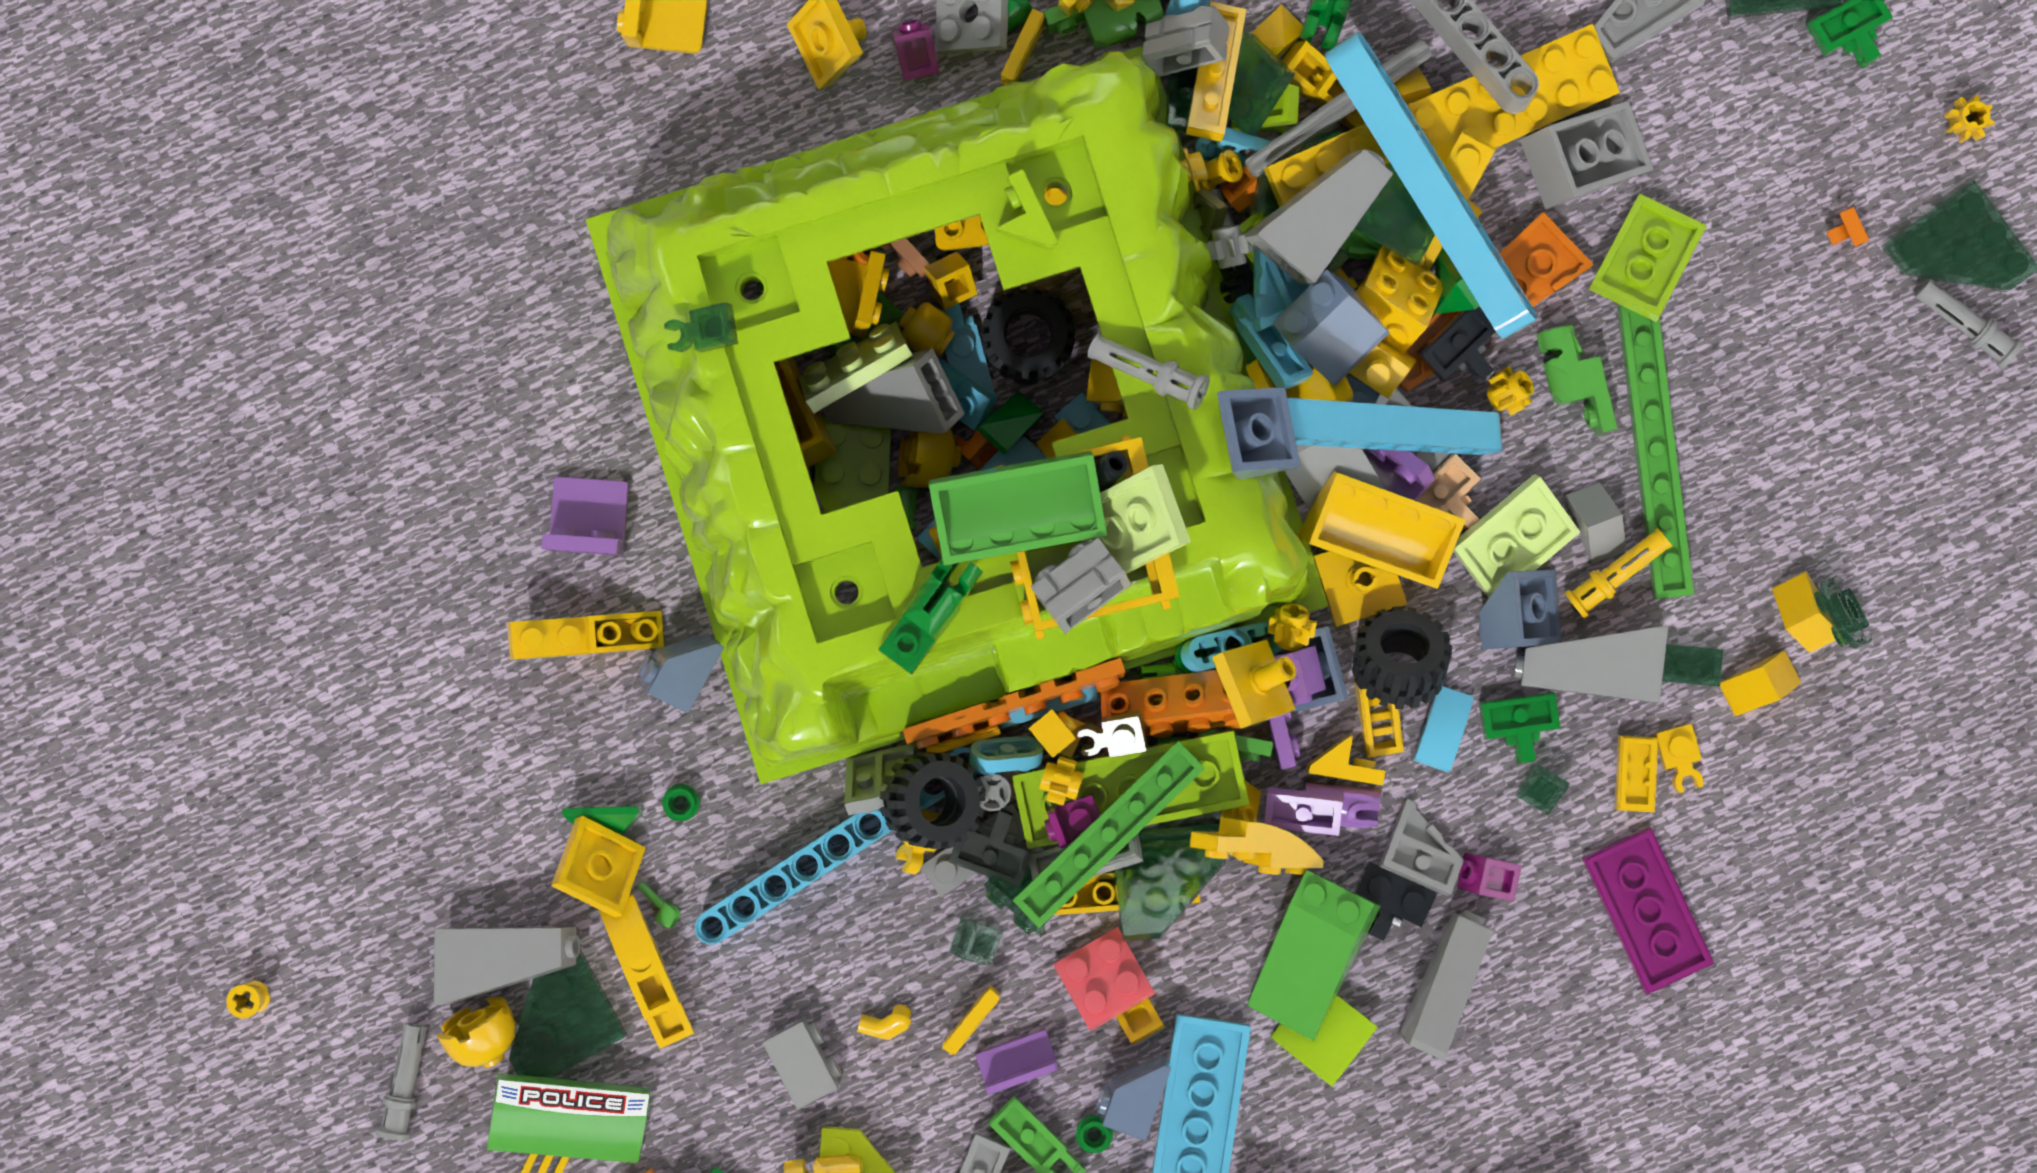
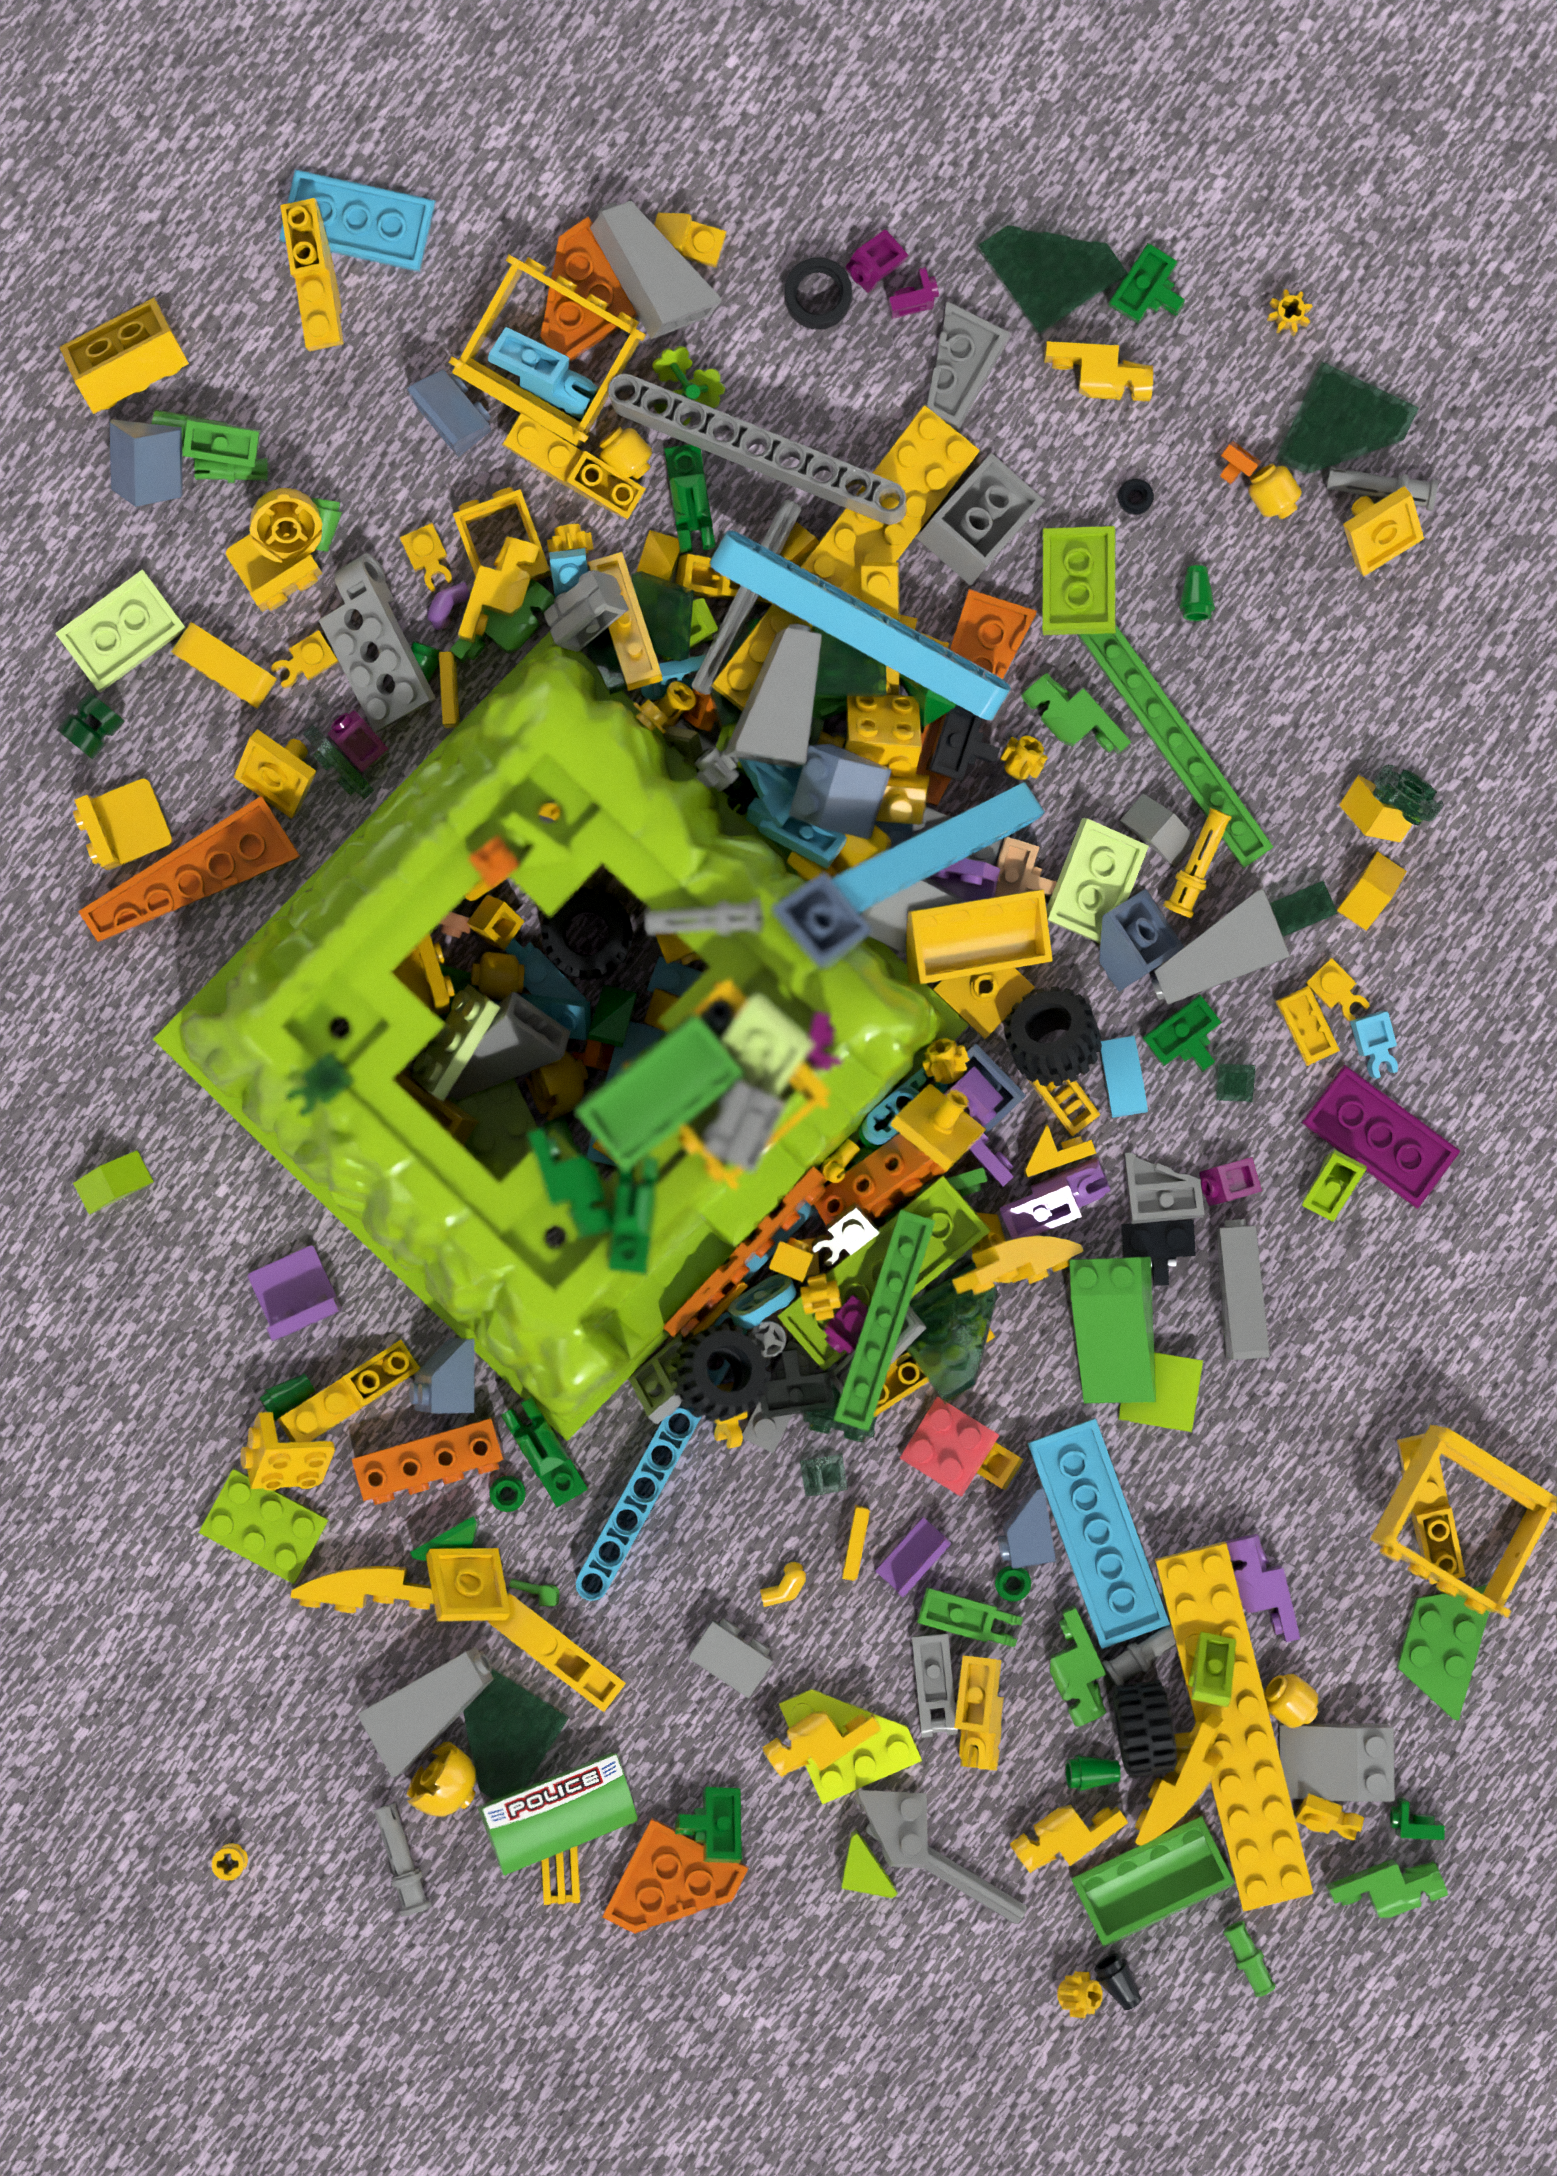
camera: 30 degrees left, 0 degrees up
(446, 712) = (264, 1526): none -> lime plate
(480, 328) = (113, 1181): none -> lime slope
(490, 666) = (283, 1464): none -> yellow bracket
(492, 810) = (350, 1588): none -> yellow slope
(530, 606) = (286, 1395): none -> green cone
(625, 733) = (429, 1459): none -> orange brick
(734, 89) = (215, 860): none -> orange wing
(734, 785) = (545, 1453): none -> green plate
(882, 49) = (329, 756): none -> clear green wing
(888, 550) = (571, 1184): none -> green plate
(979, 209) = (494, 861): none -> orange tile
(1139, 666) = (834, 1165): none -> yellow arm
(1201, 538) = (821, 1035): none -> magenta bracket
(1584, 931) = (1333, 1185): none -> lime slope
(1691, 817) = (1374, 1038): none -> medium azure plate
(1746, 329) = (1197, 594): none -> green cone
(1749, 210) = (1135, 485): none -> black plate
(1768, 78) = (1099, 370): none -> yellow plate
(1868, 273) = (1274, 491): none -> yellow head
(1951, 360) = (1382, 529): none -> yellow tile

